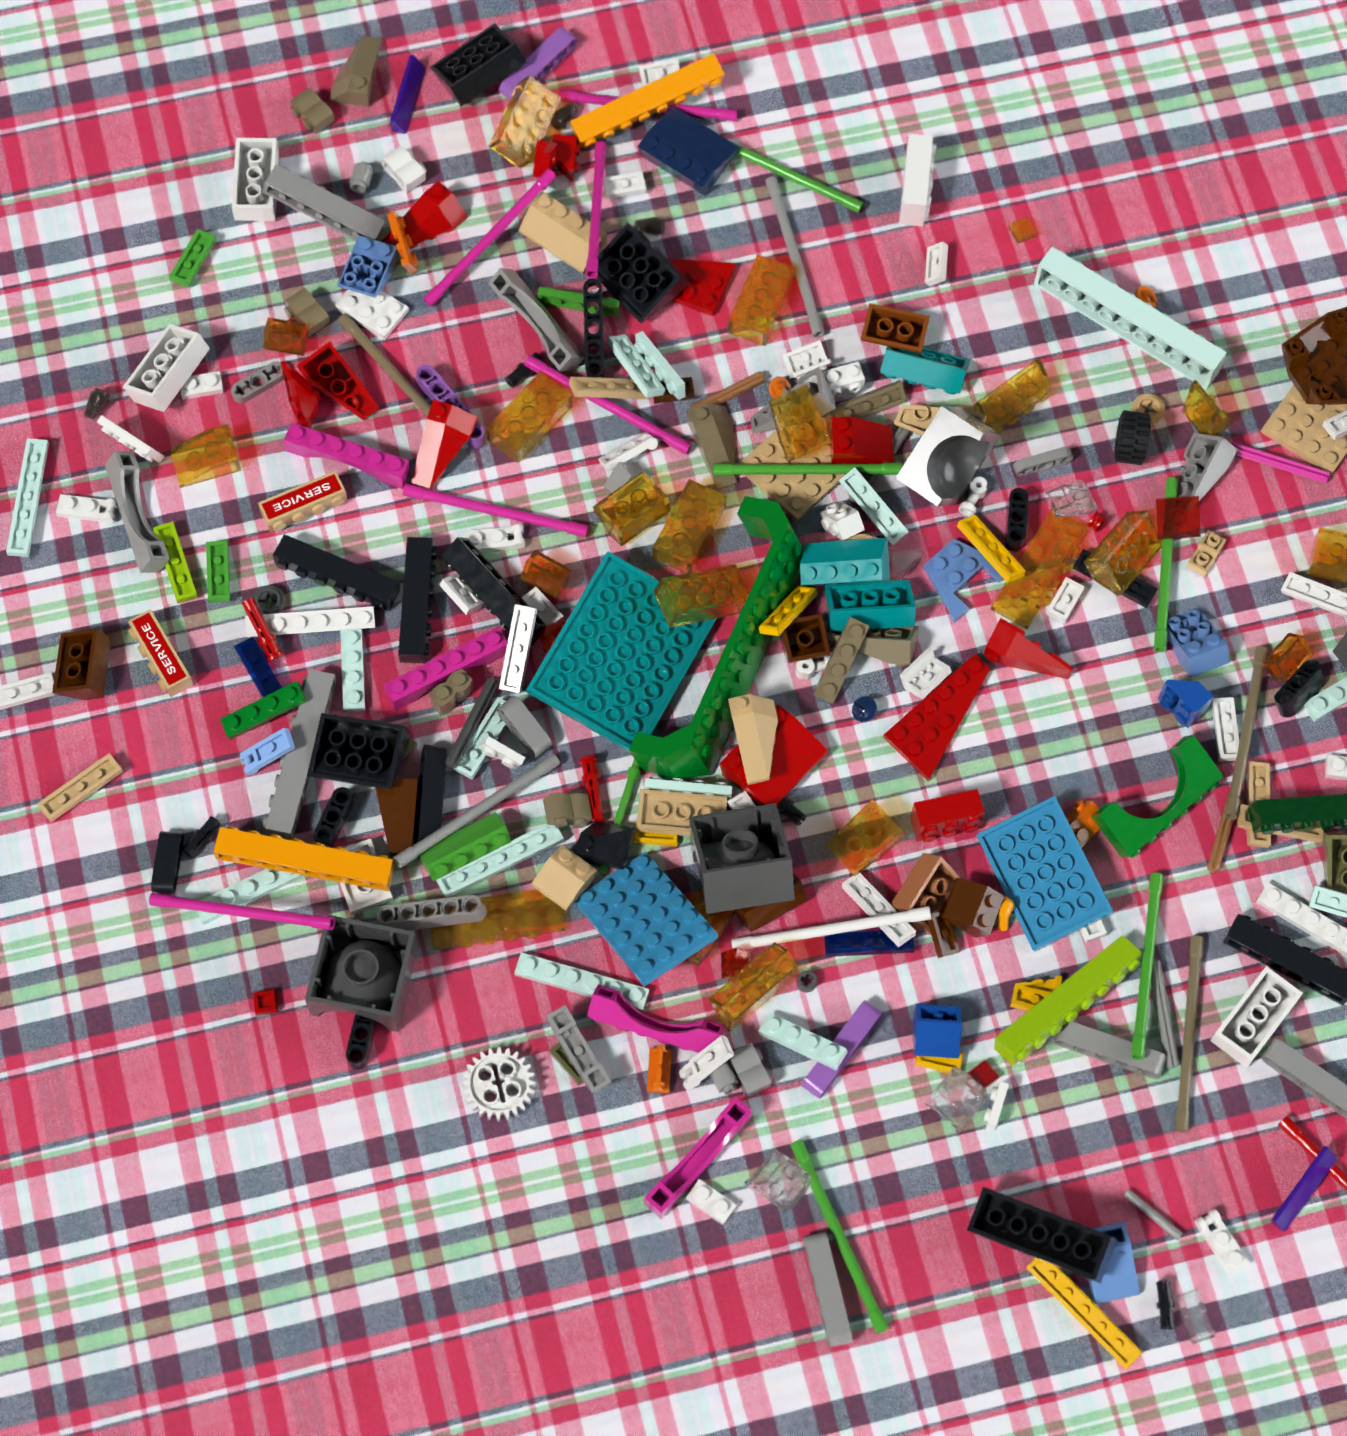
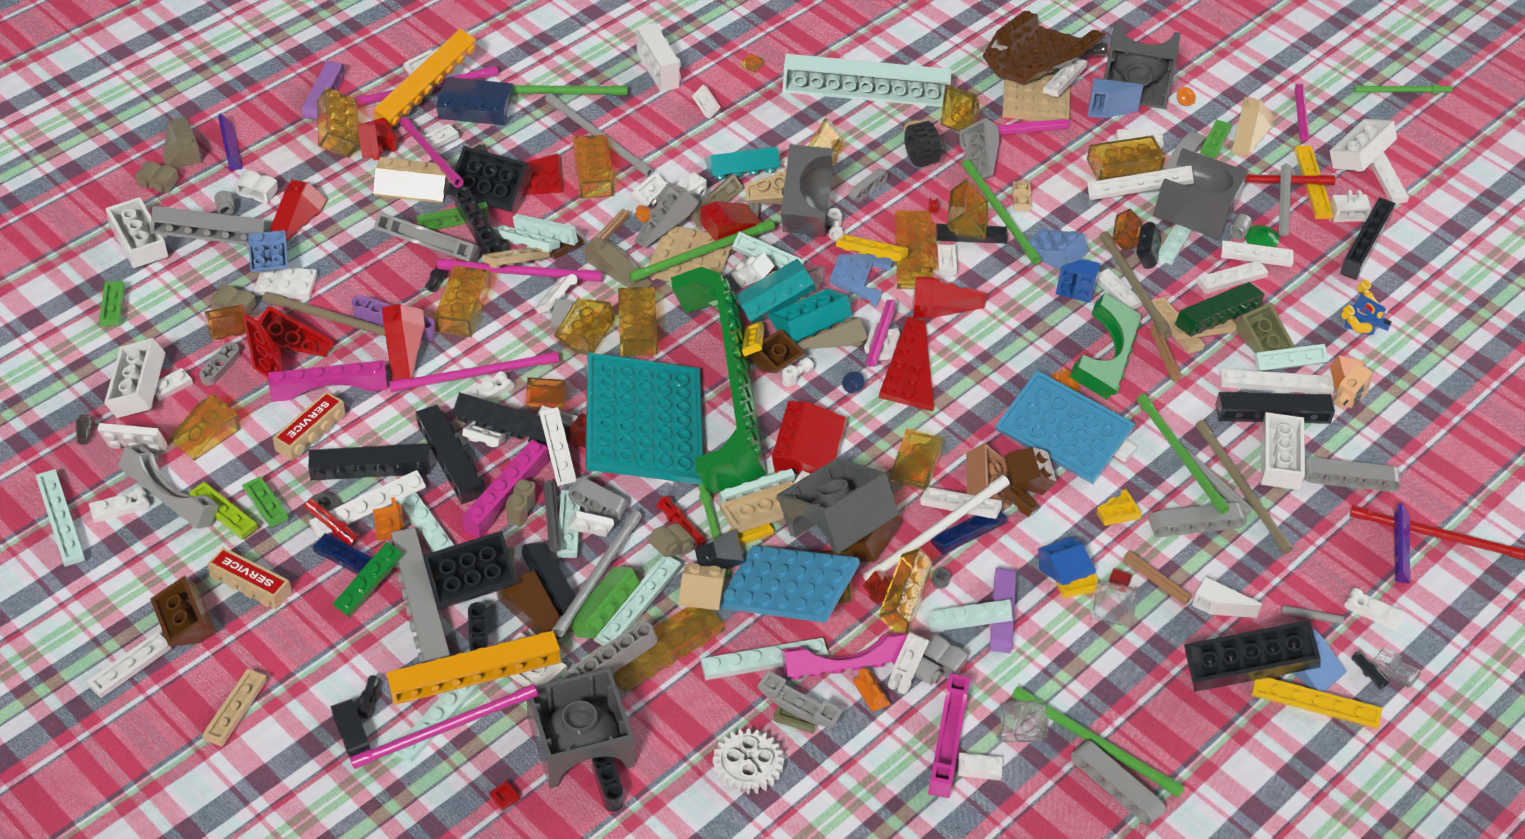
camera: 30 degrees left, 20 degrees down
(267, 751) = (390, 605): light blue plate -> none
(315, 656) = (388, 520): none -> orange bracket
(408, 259) = (292, 231): orange wing -> none
(439, 289) = (334, 250): dark pink piece -> none
(478, 64) = (277, 102): black slope -> none
(563, 116) = (364, 113): clear smoke cone -> none
(701, 595) = (680, 354): clear yellow brick -> none
(755, 731) = (786, 422): tan wedge -> none
(798, 423) = (680, 218): clear yellow slope -> none
(841, 660) = (815, 355): dark tan plate -> none
(895, 328) = (705, 143): dark orange slope -> none
(929, 663) = (880, 333): none -> dark pink axle
(947, 815) = (967, 419): red brick -> none
(992, 1114) = (1146, 593): white plate -> none
(1004, 914) = (1056, 465): light orange arm -> none
(1020, 511) = (875, 223): black beam -> none
(1025, 1098) = (1157, 577): none -> medium nougat axle
(1065, 1150) = (1221, 600): none -> white slope
(1067, 1001) = (1146, 498): lime brick -> none
(1071, 500) = (908, 197): clear slope -> none
(1178, 517) = (989, 178): clear red tile -> none

